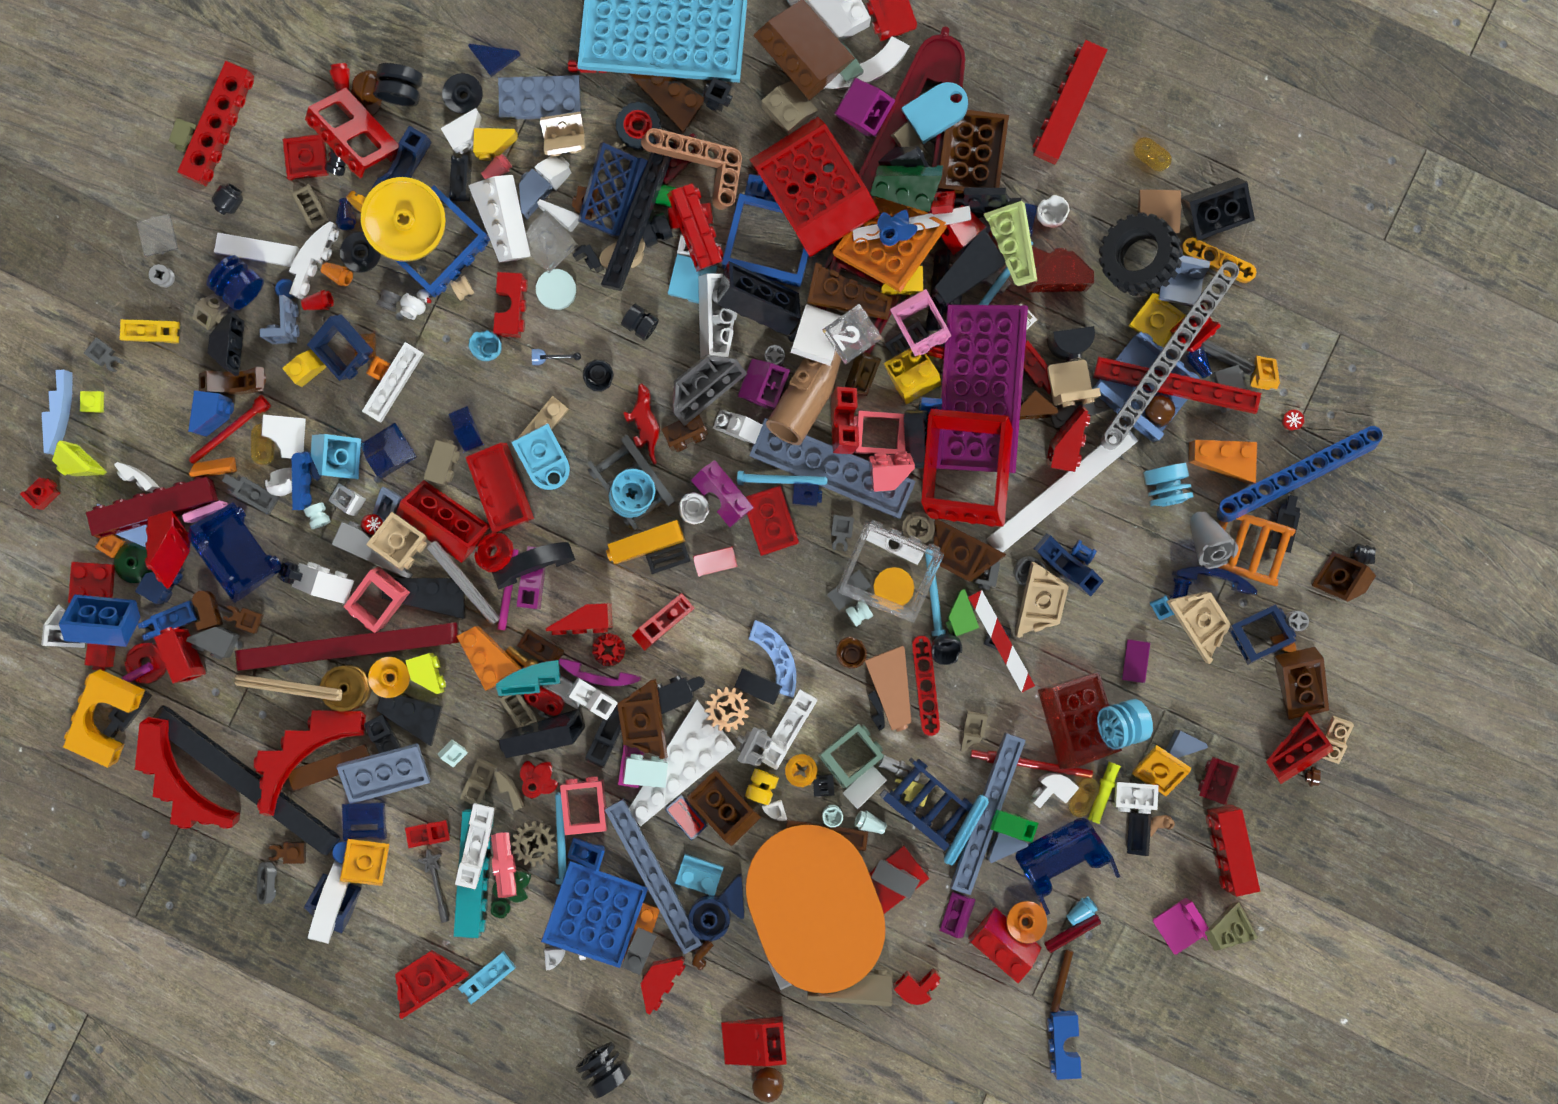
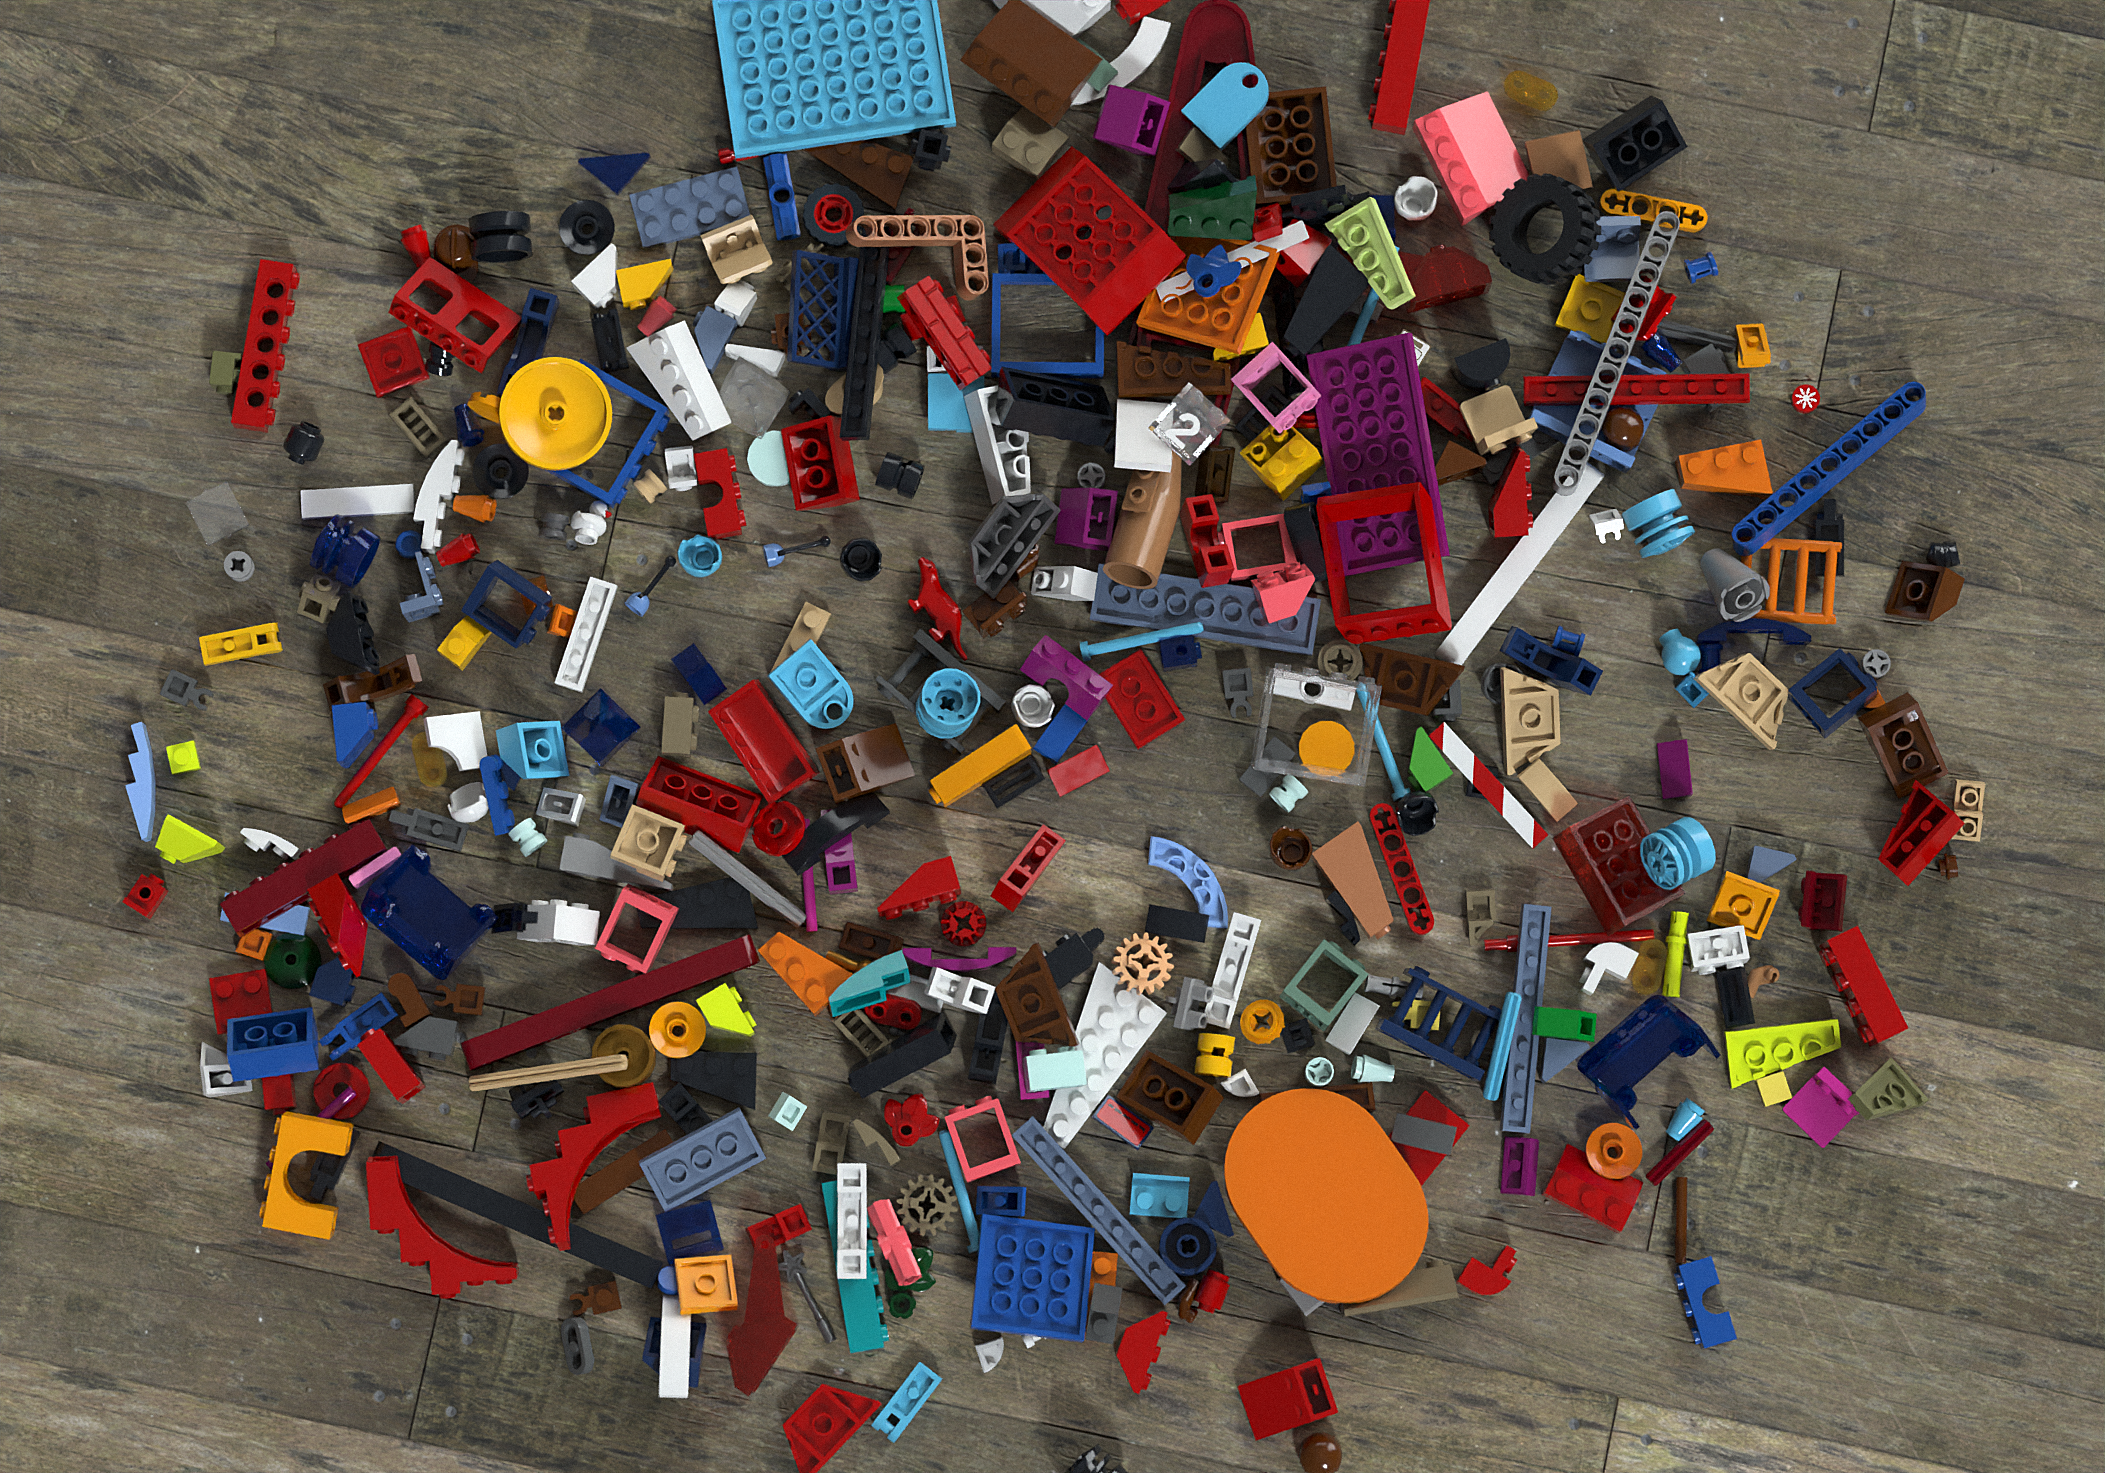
camera: 15 degrees left, 5 degrees down
(278, 703) = (536, 1100): none -> black hips
(371, 523) = (604, 830): red tile -> none
(399, 901) = (765, 1327): none -> clear red slope
(436, 367) = (638, 601): none -> hinge
(486, 280) = (681, 468): none -> white bracket
(565, 520) = (864, 763): none -> reddish brown slope
(584, 301) = (819, 464): none -> red slope
(605, 92) = (785, 213): none -> blue piece
(708, 532) = (1060, 734): none -> blue slope
(716, 406) = (1028, 564): none -> reddish brown arm
(719, 952) = (1212, 1291): none -> red brick
(1042, 654) = (1547, 790): none -> tan slope
(1098, 189) = (1470, 154): none -> coral piece
(1131, 474) = (1607, 522): none -> white tile
(1150, 904) = (1773, 1089): none -> light yellow tile
(1156, 875) = (1773, 1048): none -> neon yellow wing
(1160, 580) = (1679, 653): none -> medium azure piece
(1242, 308) = (1700, 267): none -> blue bush

